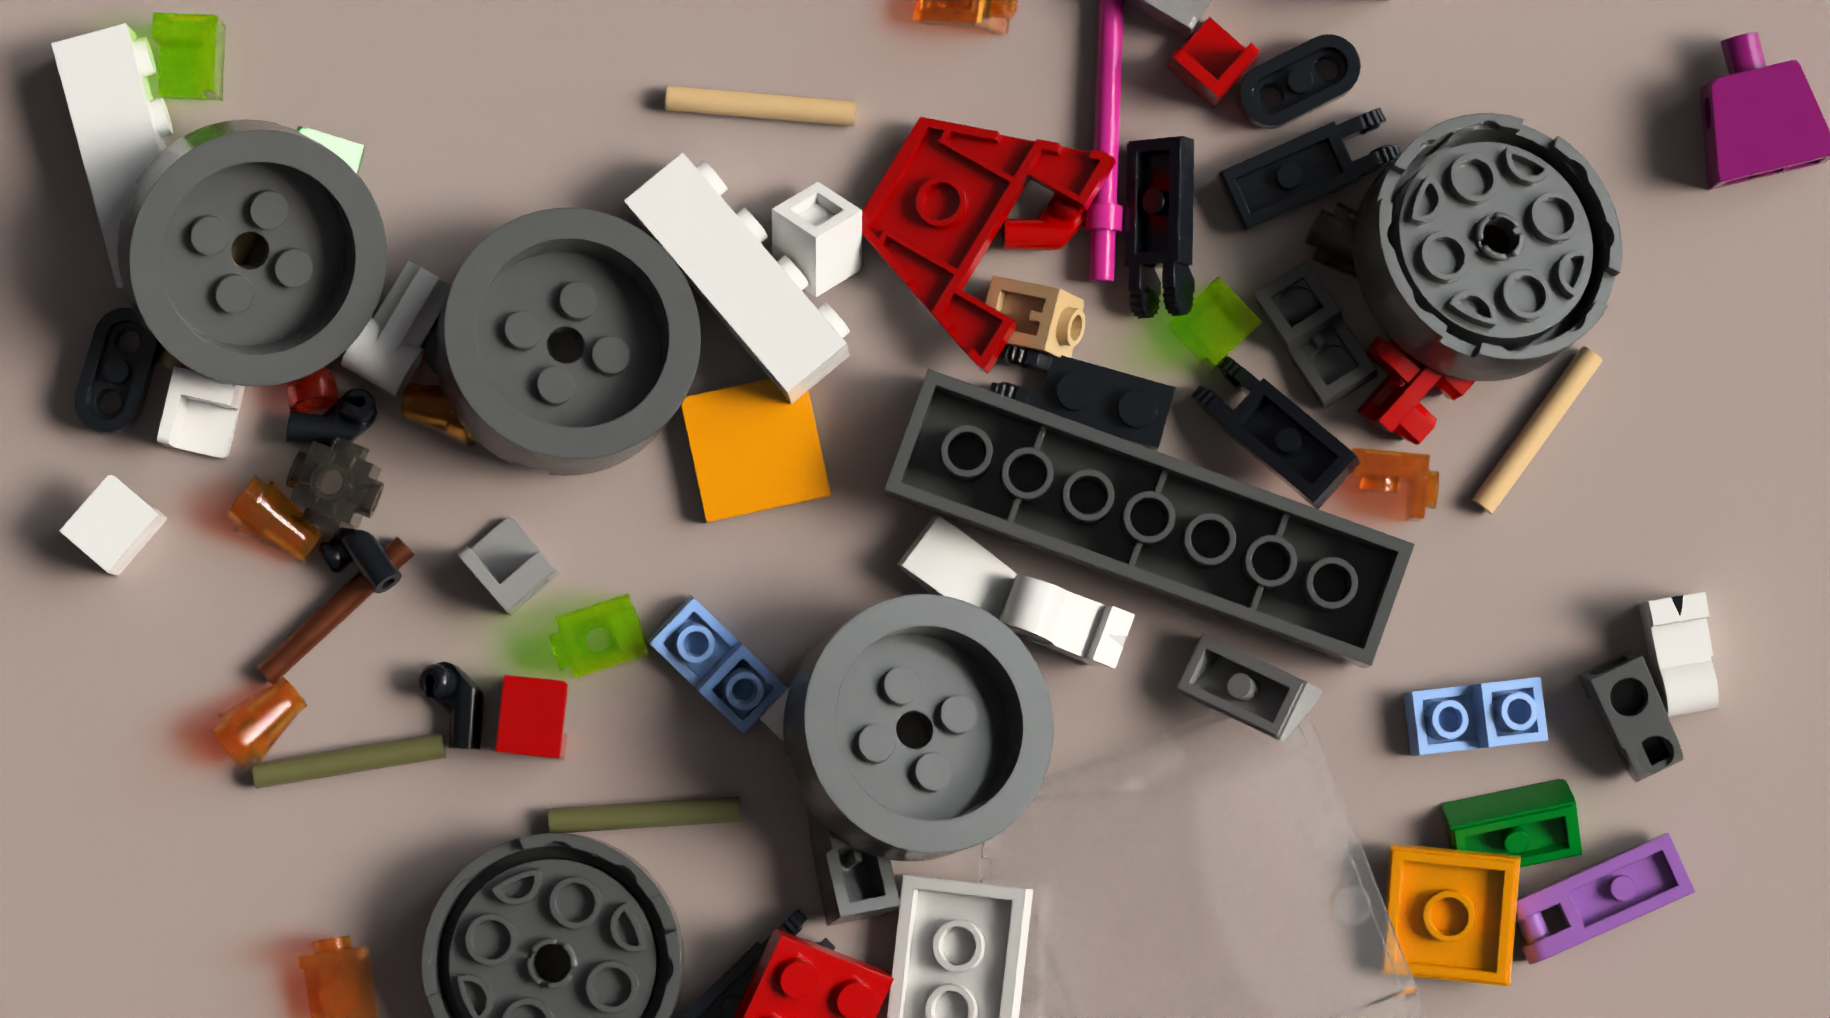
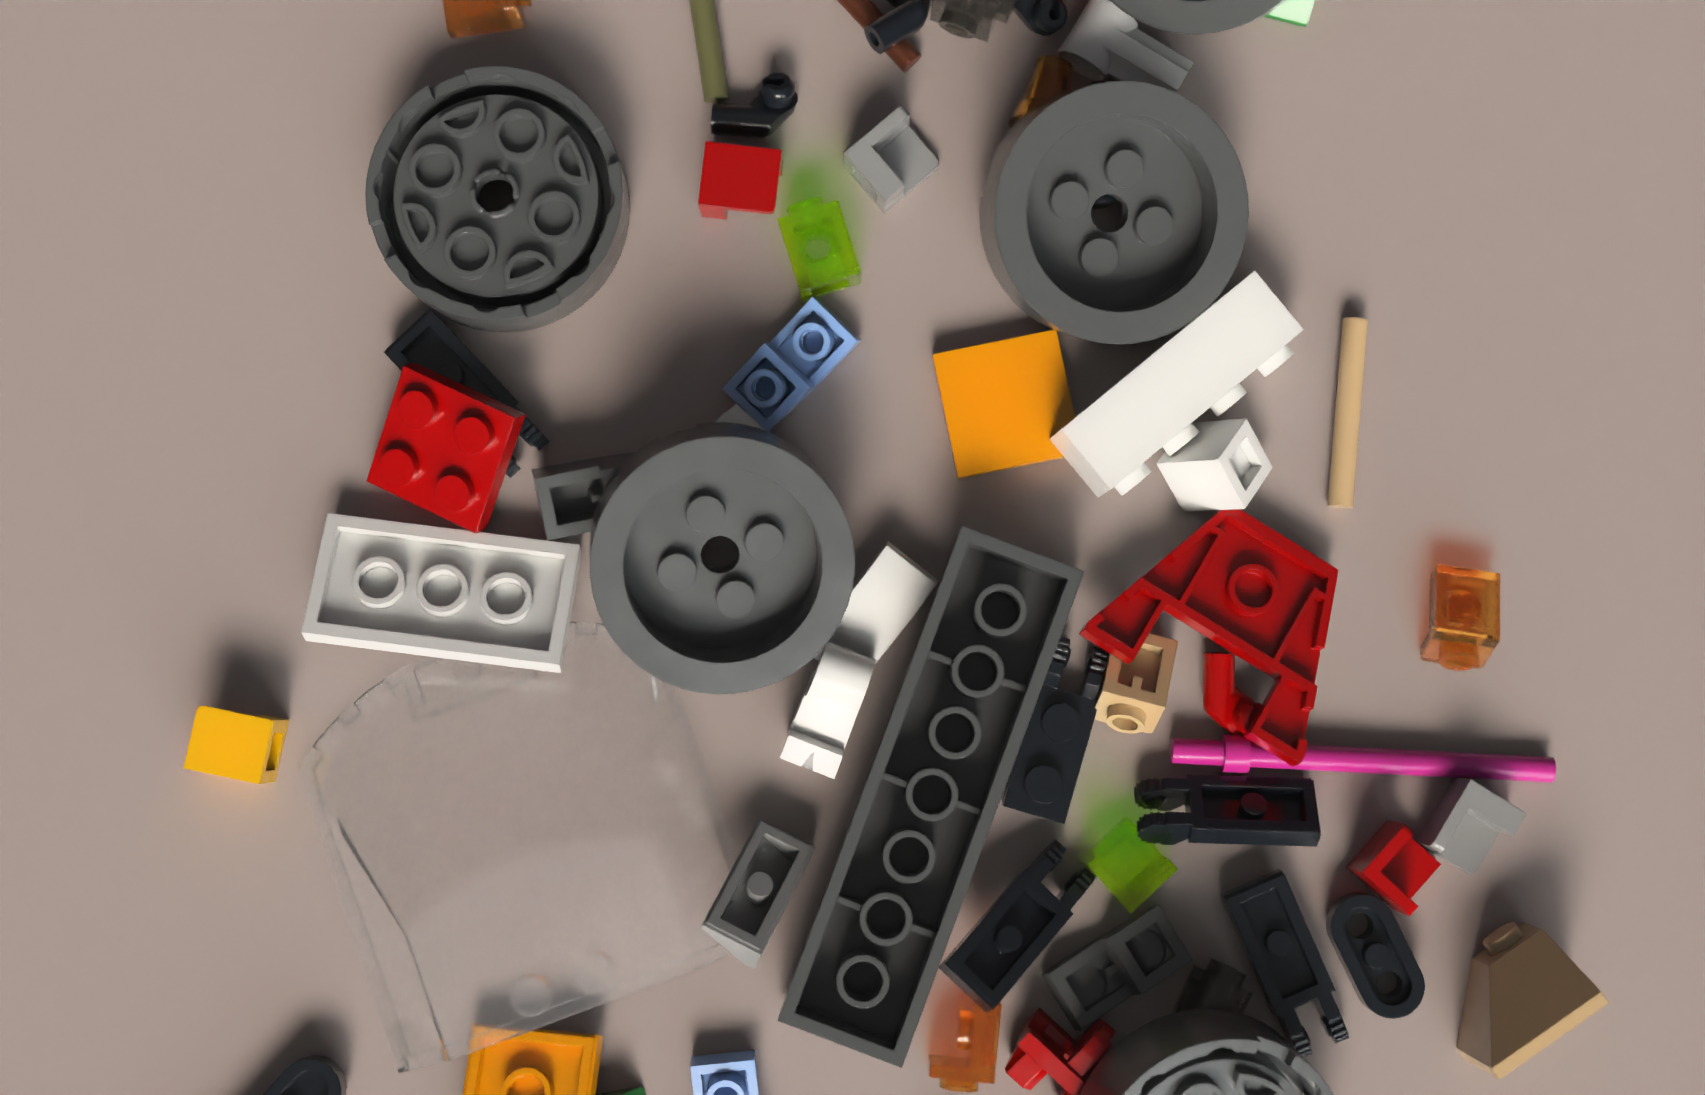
camera: 95 degrees right, 0 degrees up
(644, 815) = (645, 293): olive bar -> none

